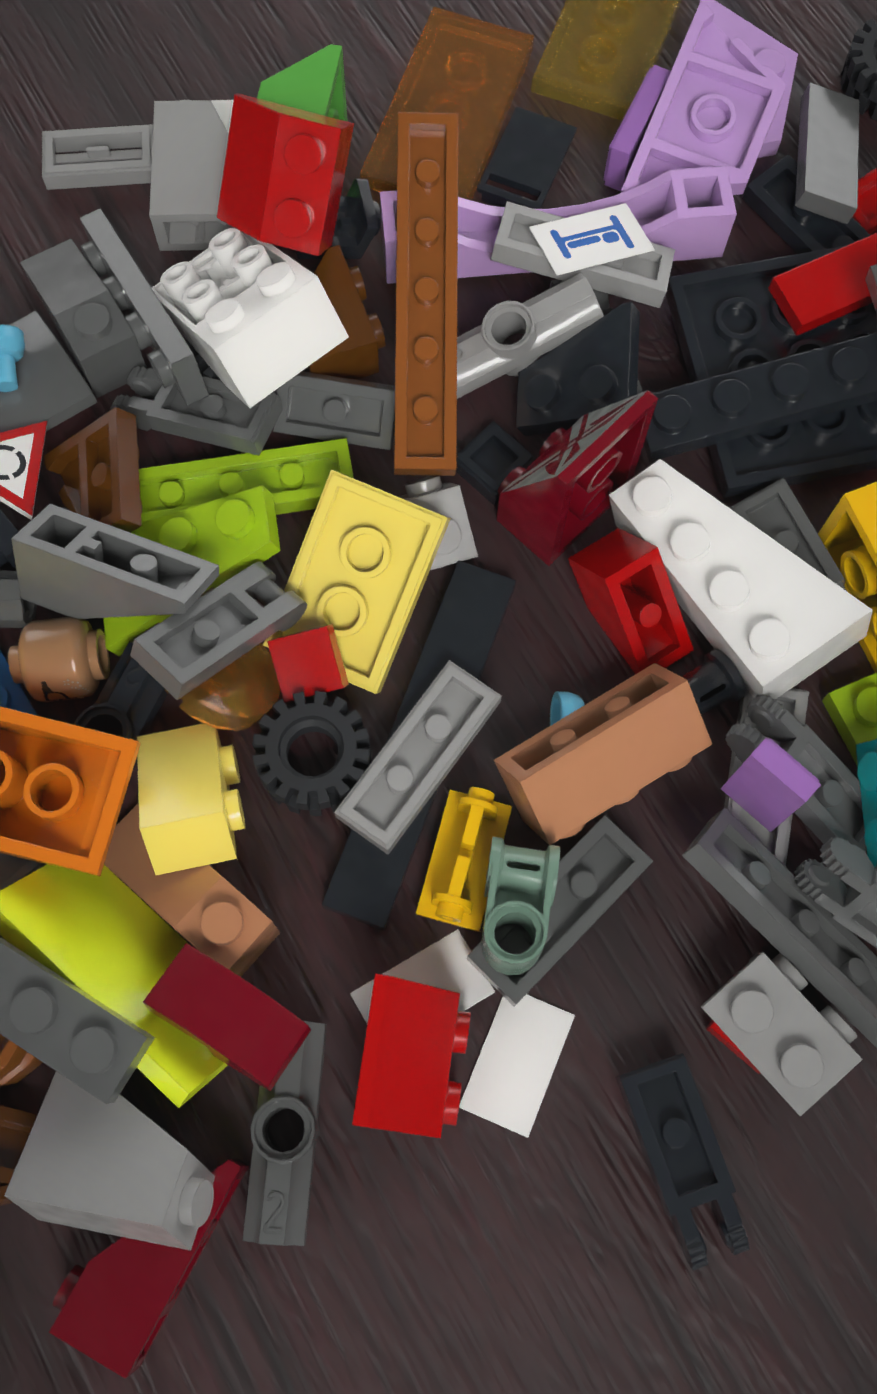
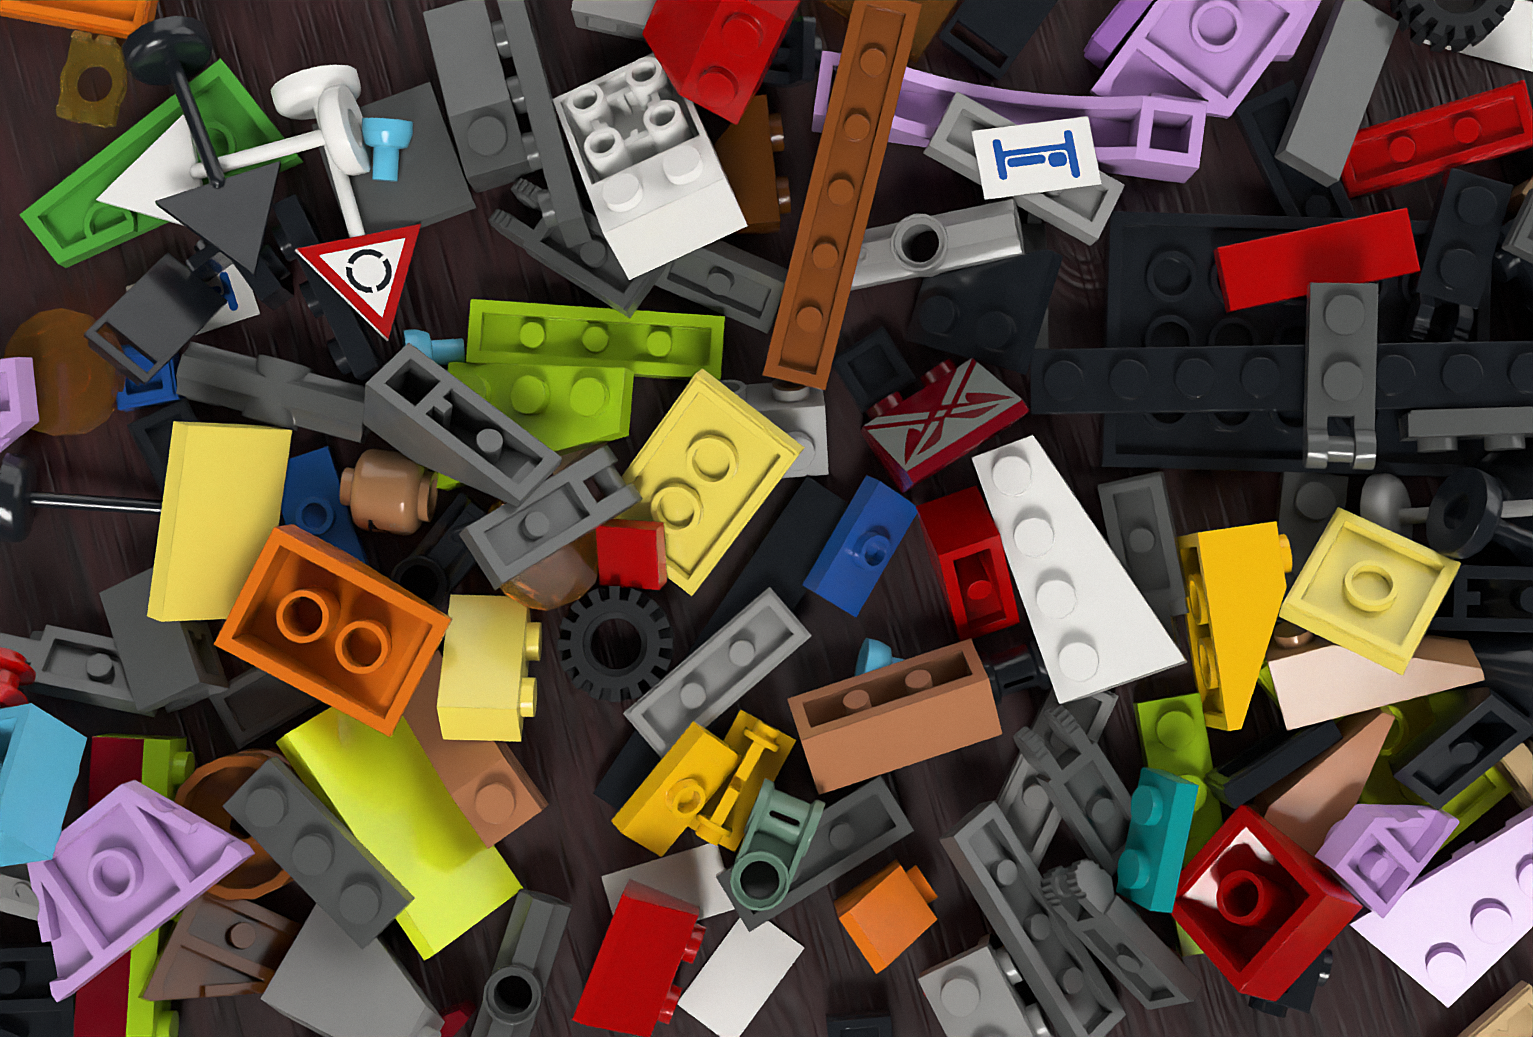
camera: 10 degrees right, 15 degrees up
(101, 471) = (464, 310): reddish brown wing -> none
(227, 1016) = (483, 890): dark red slope -> none
(406, 874) = (677, 789): none -> yellow plate
(525, 610) = (861, 546): none -> blue plate
(650, 948) = (887, 912): none -> orange slope
(771, 785) = (1038, 799): medium lavender tile -> none

